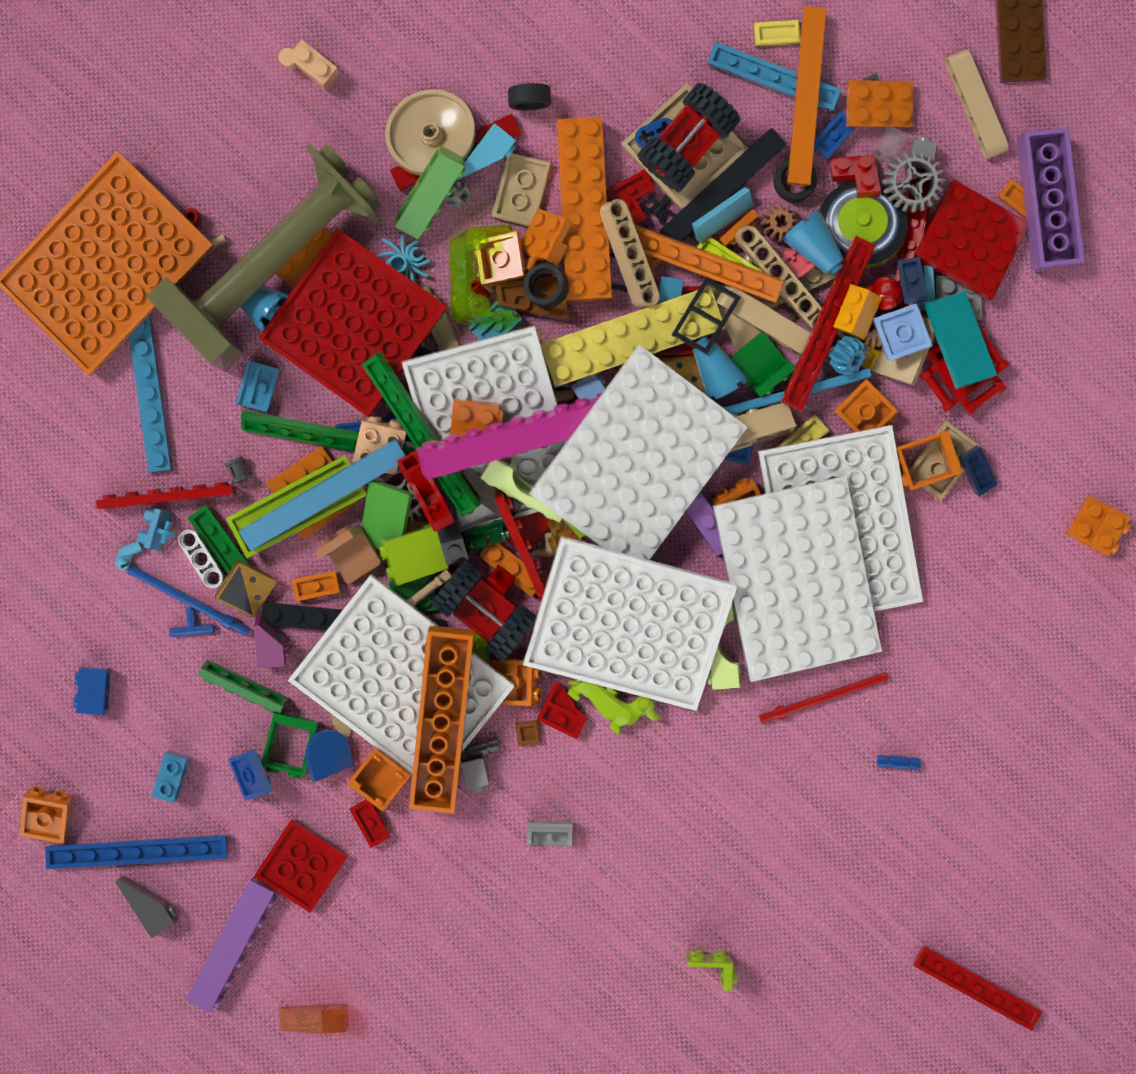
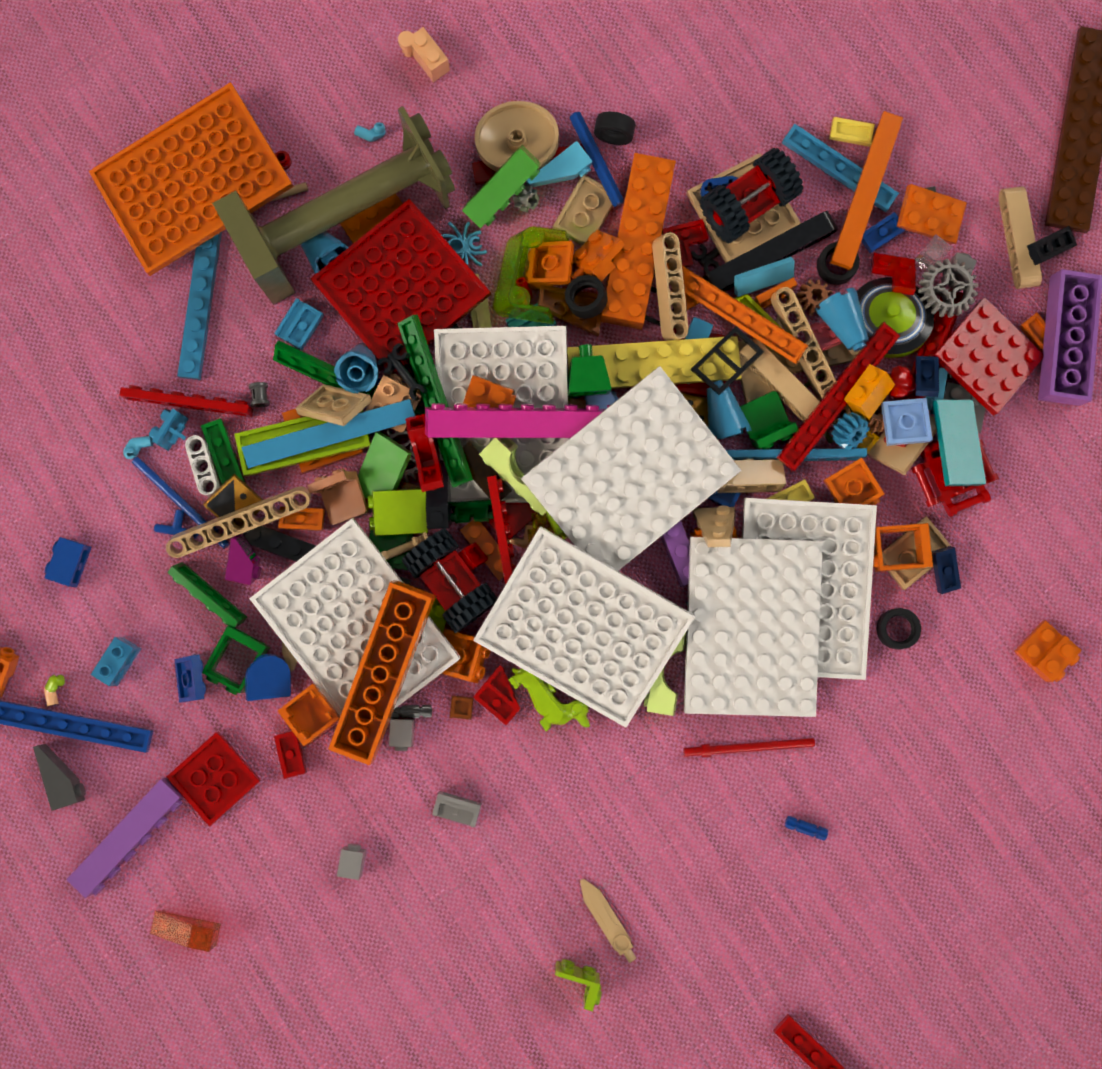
camera: 15 degrees right, 5 degrees down
(112, 819) = (51, 687): none -> arm
(250, 615) = (231, 529): none -> tan beam
(277, 164) = (372, 134): none -> medium azure arm
(319, 463) = (333, 405): none -> tan tile
(333, 421) = (357, 369): none -> dark azure cone
(368, 404) = (394, 362): none -> black bar
(459, 910) = (351, 862): none -> light grey brick
(519, 133) = (597, 160): none -> blue axle
(569, 368) = (588, 374): none -> green torso
(725, 901) = (607, 920): none -> tan piece
(736, 486) = (716, 525): none -> tan wing
(961, 541) = (915, 628): none -> black tyre
(1010, 106) = (1051, 245): none -> black plate

